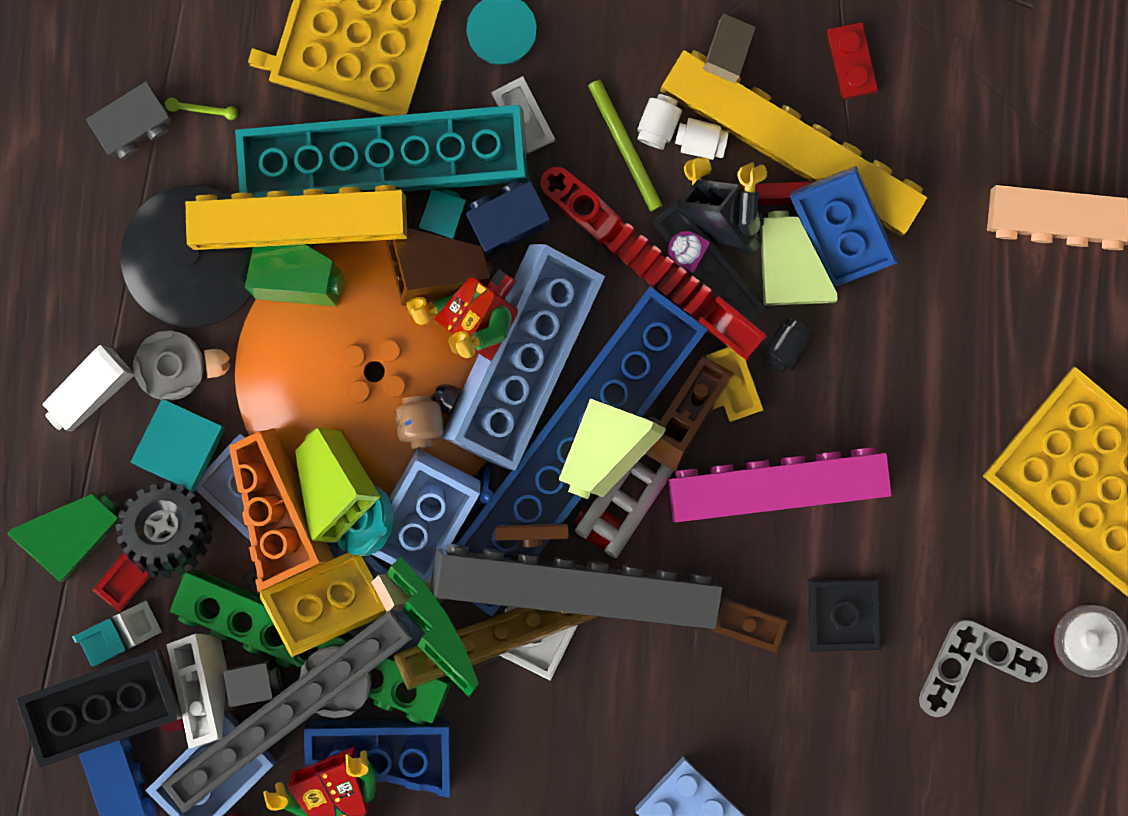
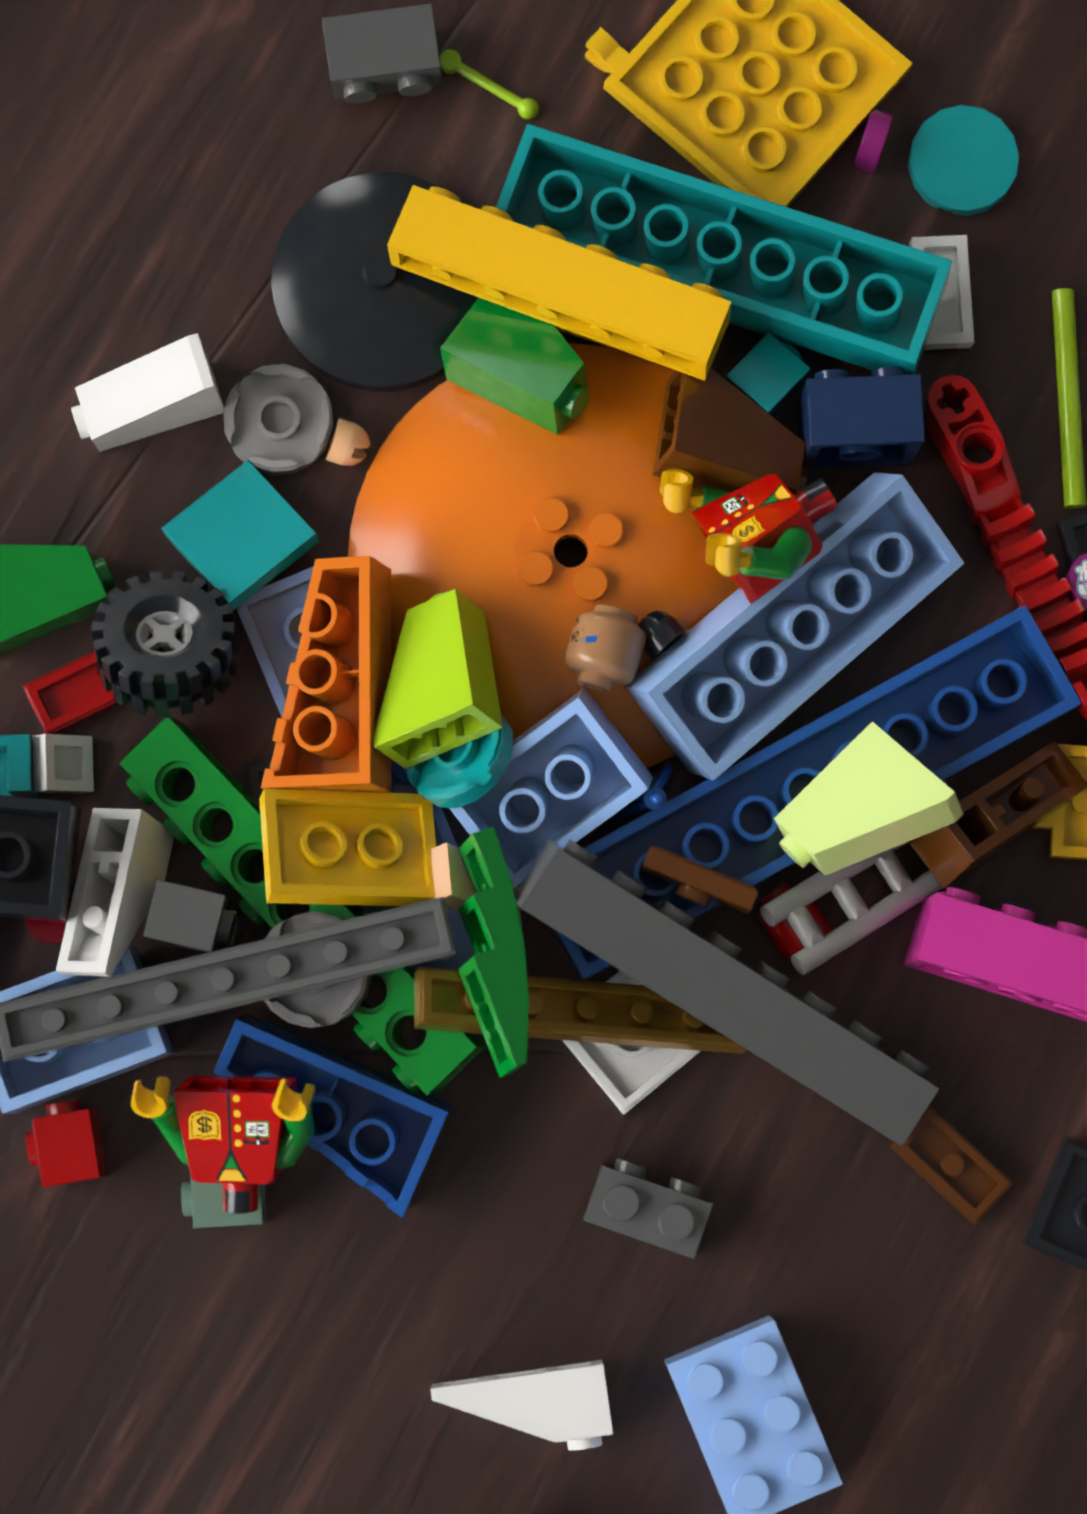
camera: 20 degrees right, 5 degrees down
(443, 43) = (872, 141): none -> magenta tile
(587, 729) = (647, 1211): none -> dark grey brick

